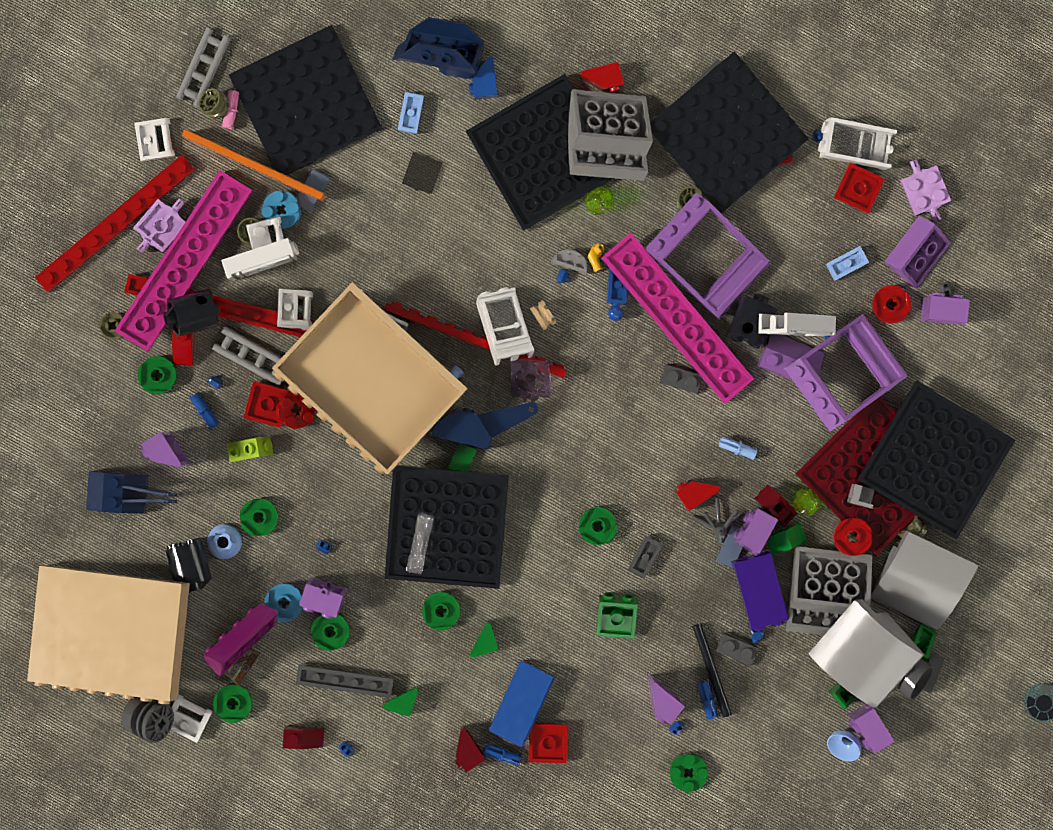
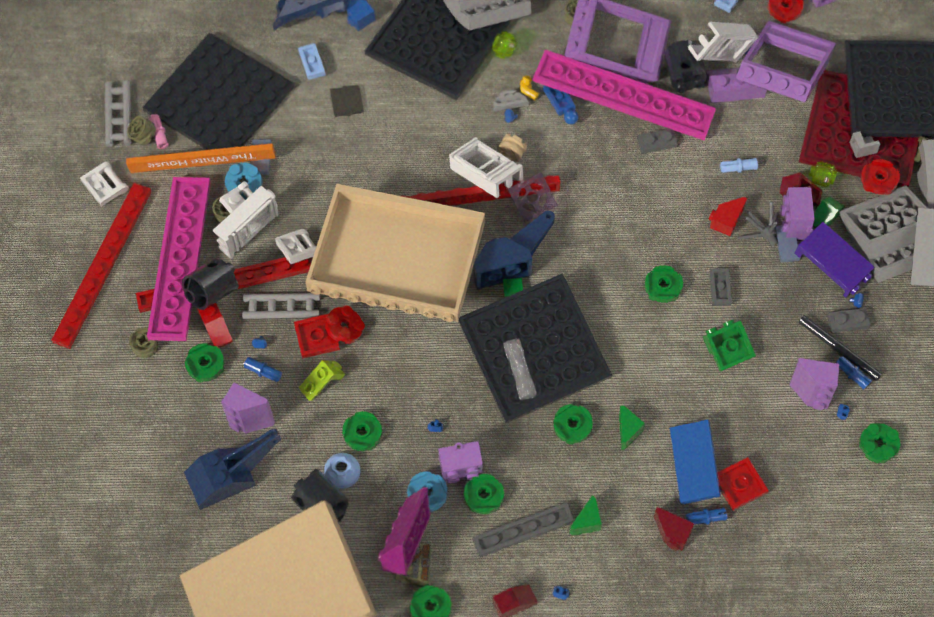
camera: 25 degrees left, 25 degrees down
(160, 225) = (143, 244): lavender plate -> none

